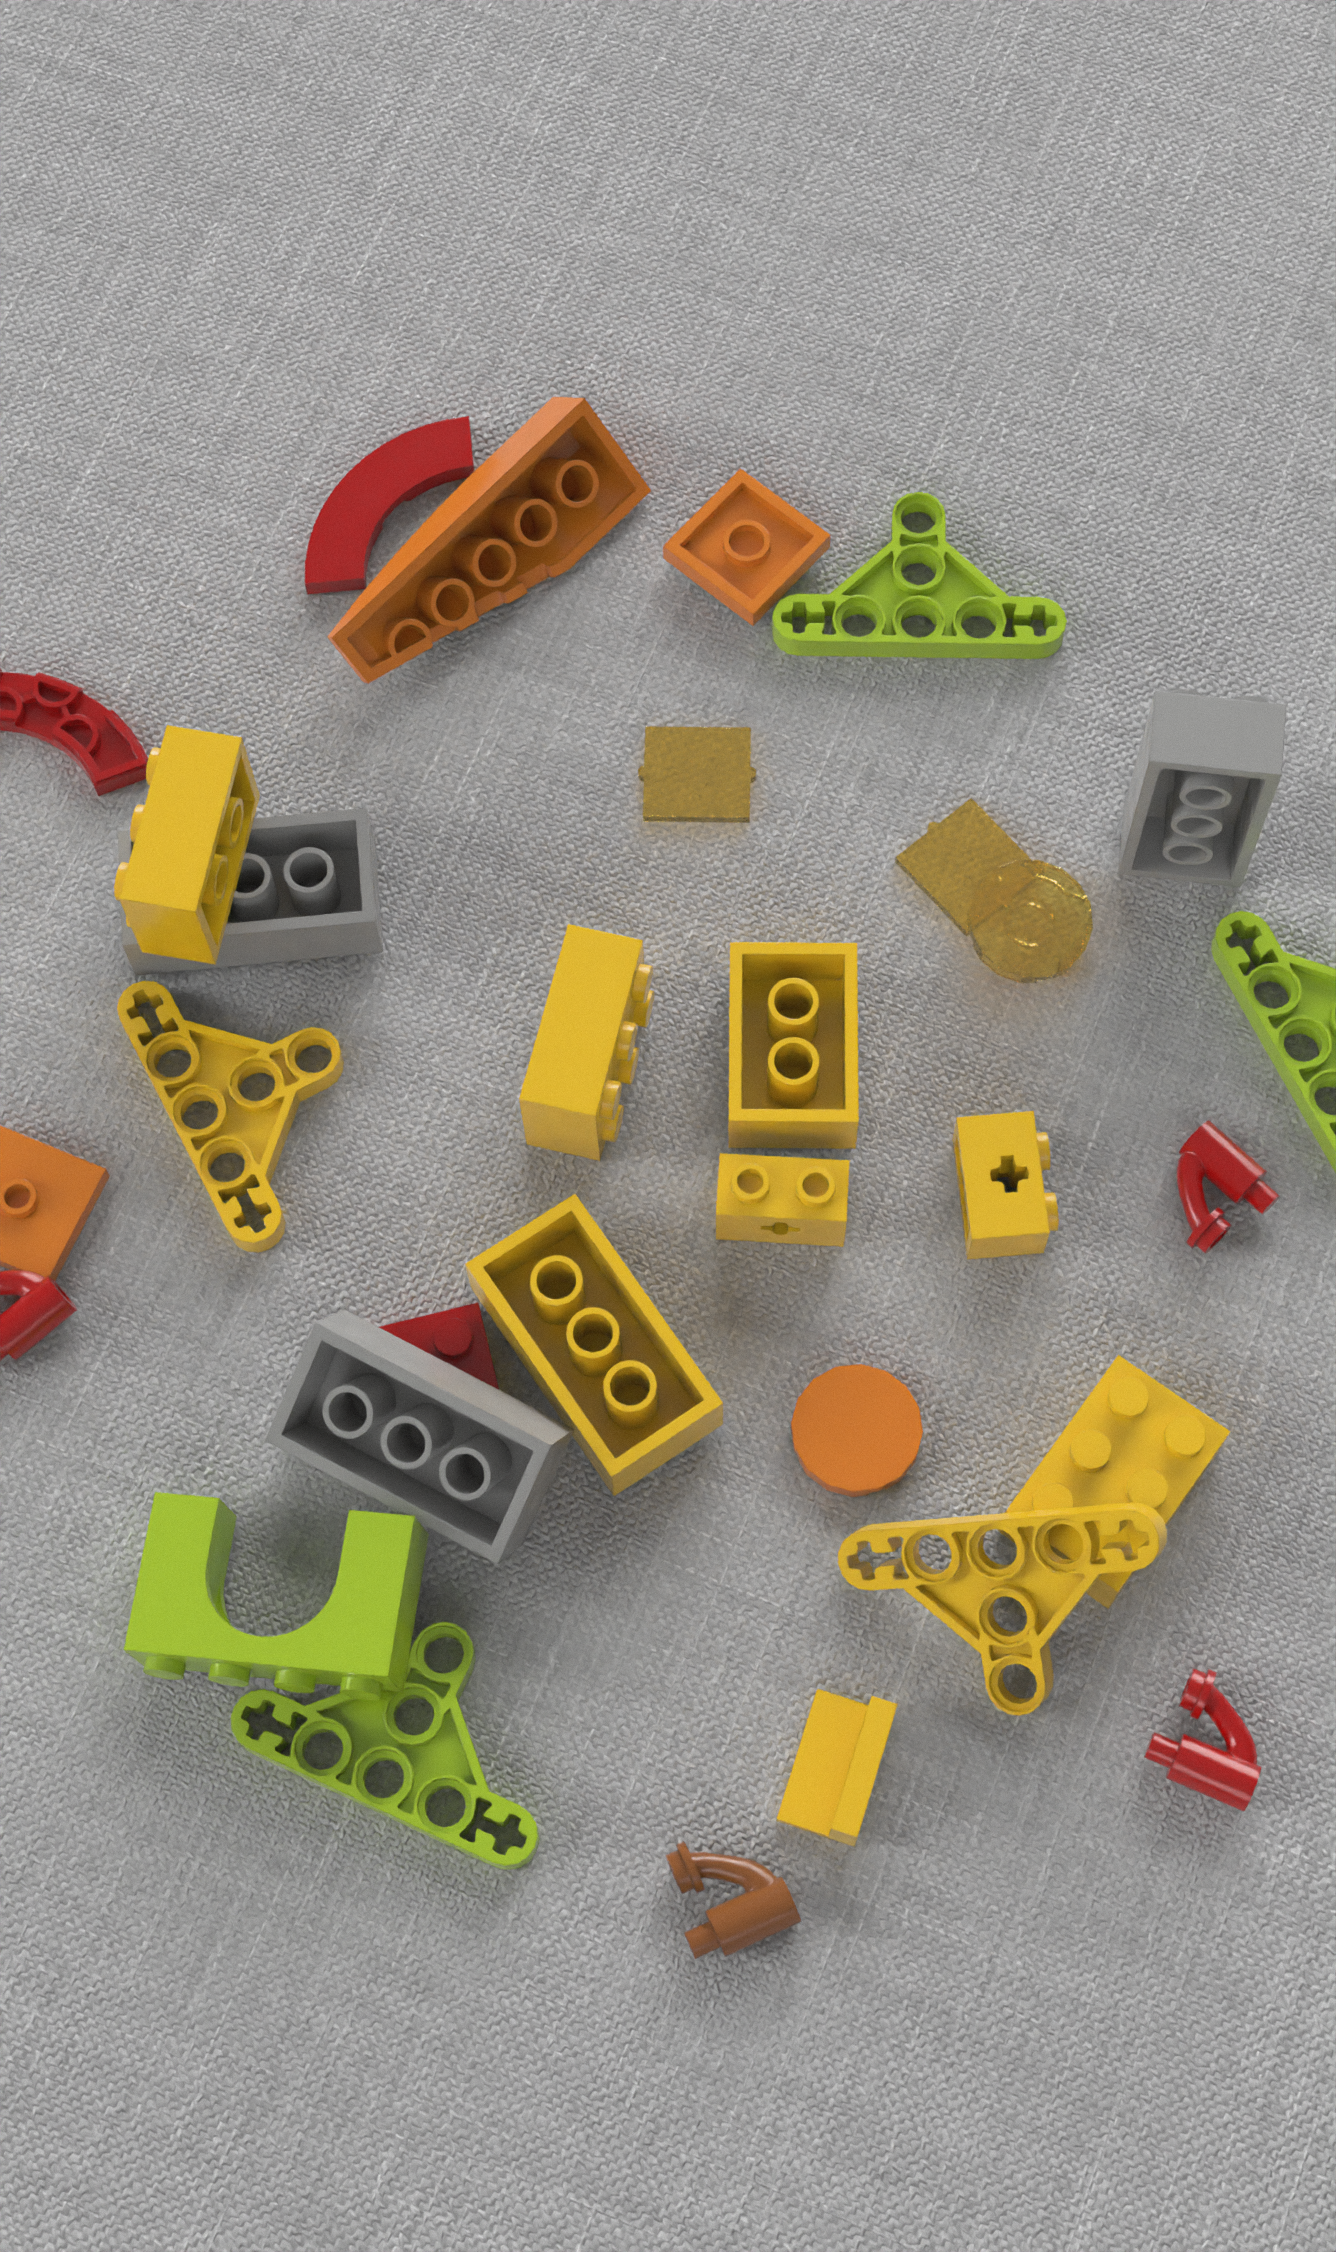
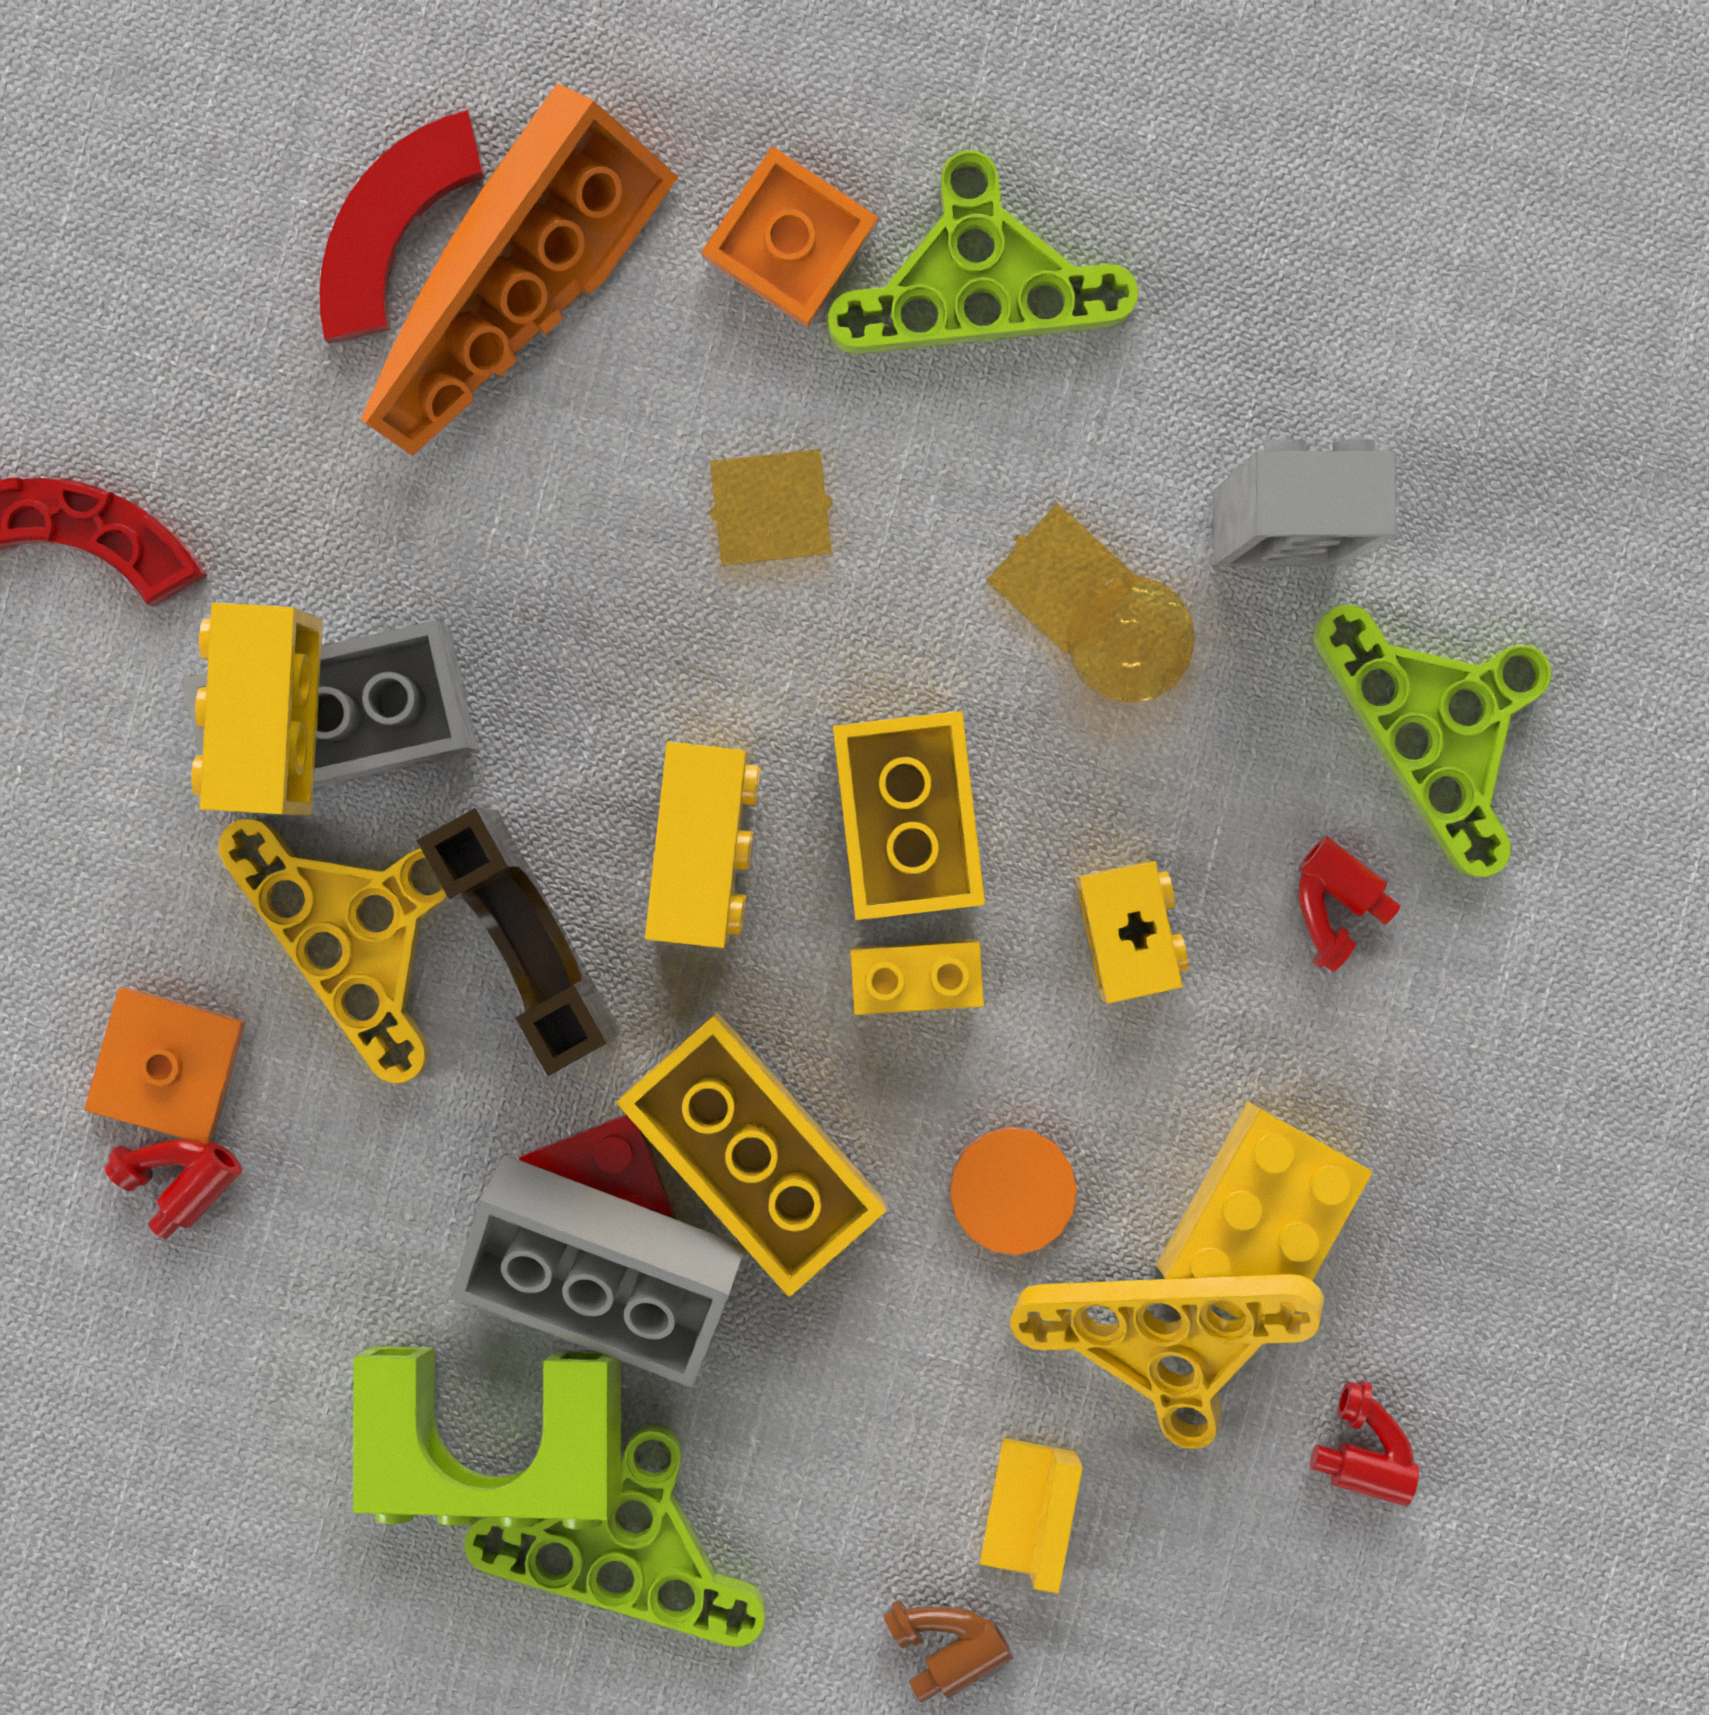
camera: 10 degrees left, 20 degrees up
(388, 1081) = (485, 868): none -> dark brown arch

